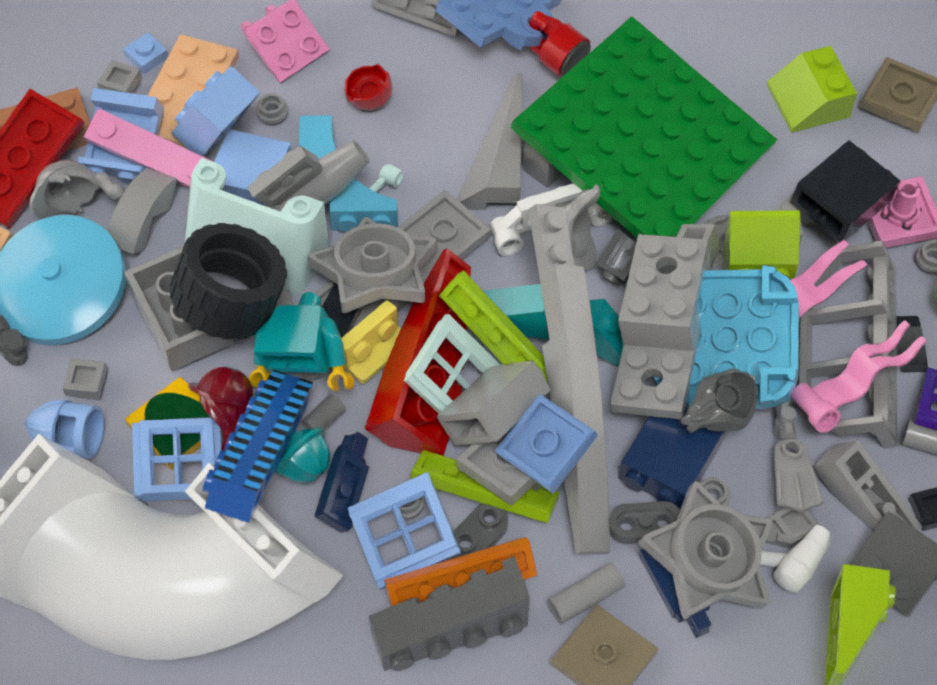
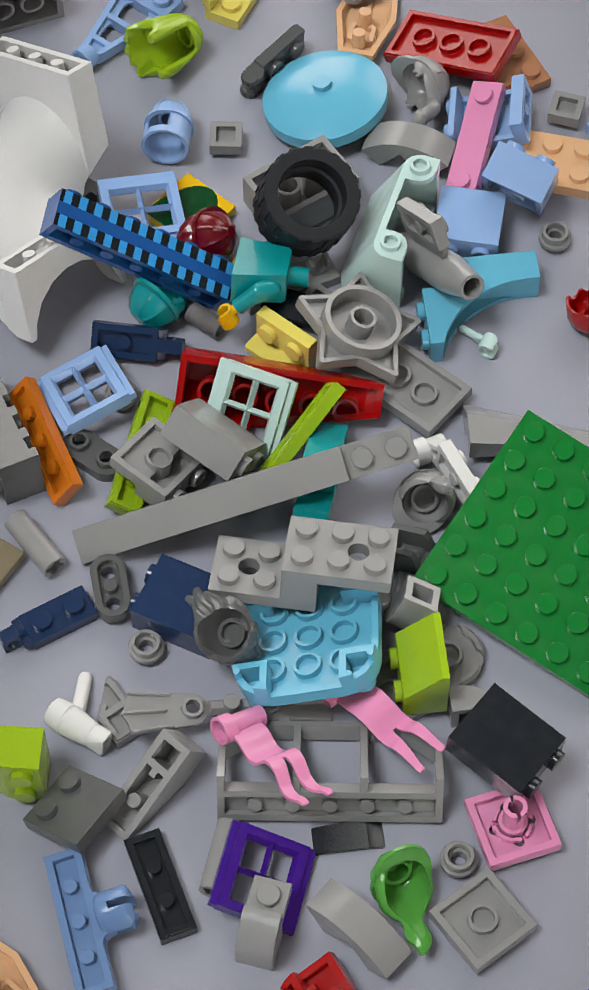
camera: 85 degrees right, 0 degrees up
(546, 443) = (162, 476): medium blue plate -> none
(711, 553) = (64, 610): light grey plate -> none

